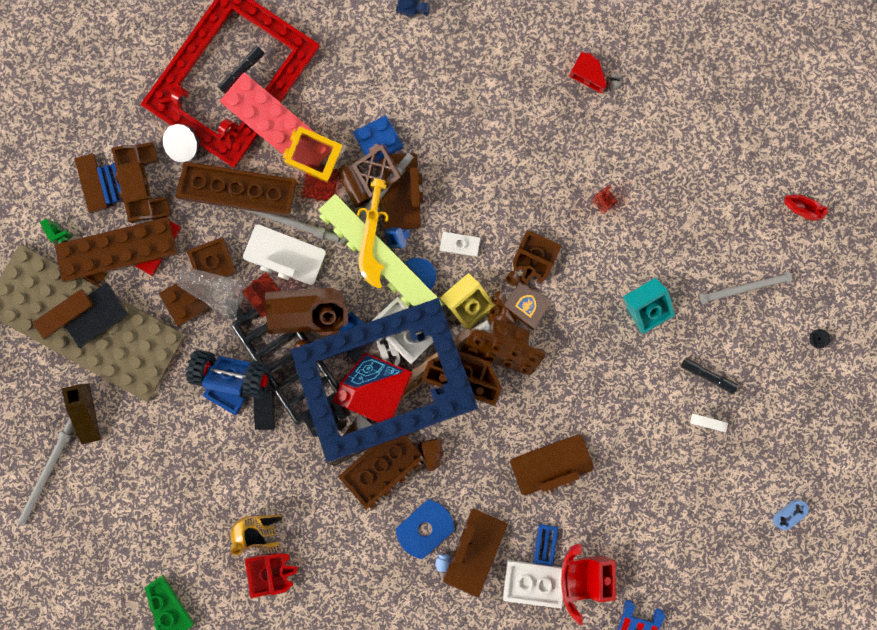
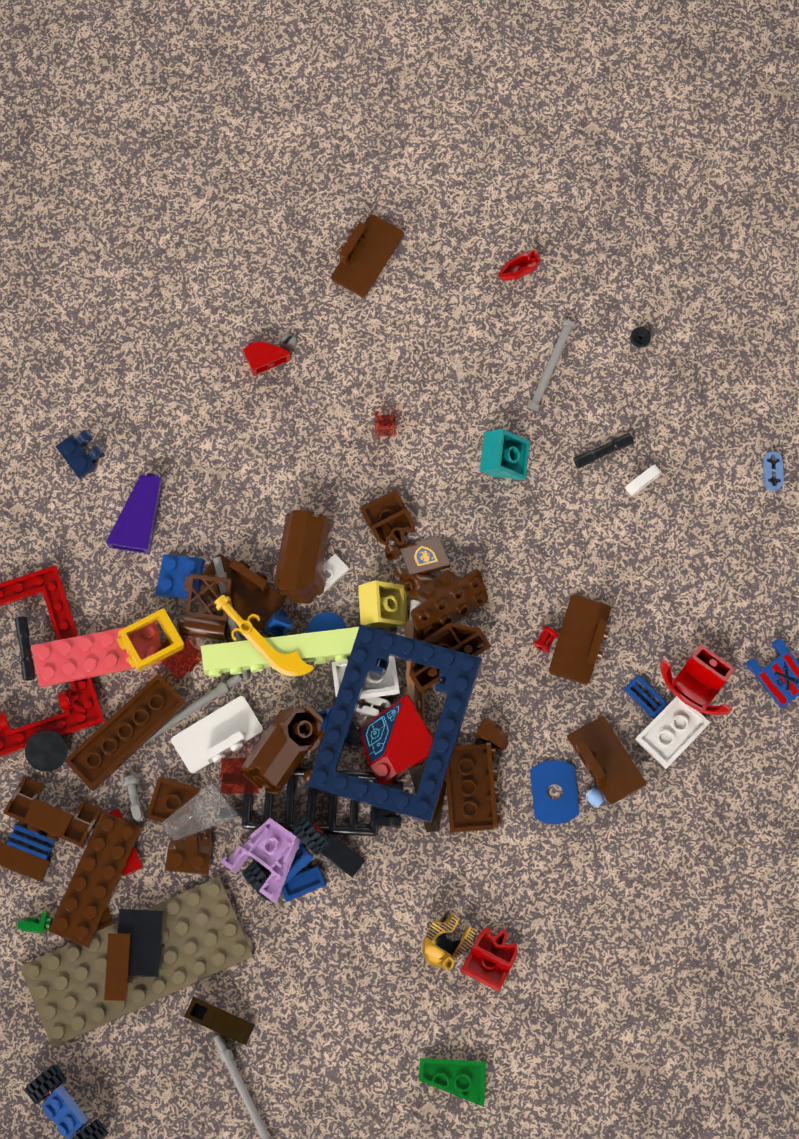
camera: 50 degrees left, 10 degrees down
(186, 242) = (130, 783): none -> light grey hinge
(226, 361) = (272, 848): none -> lavender wing
(399, 75) = (138, 518): none -> dark purple slope
(457, 216) = (302, 556): none -> reddish brown brick
(532, 439) = (545, 639): none -> red bush
(725, 86) = (366, 254): none -> reddish brown bracket

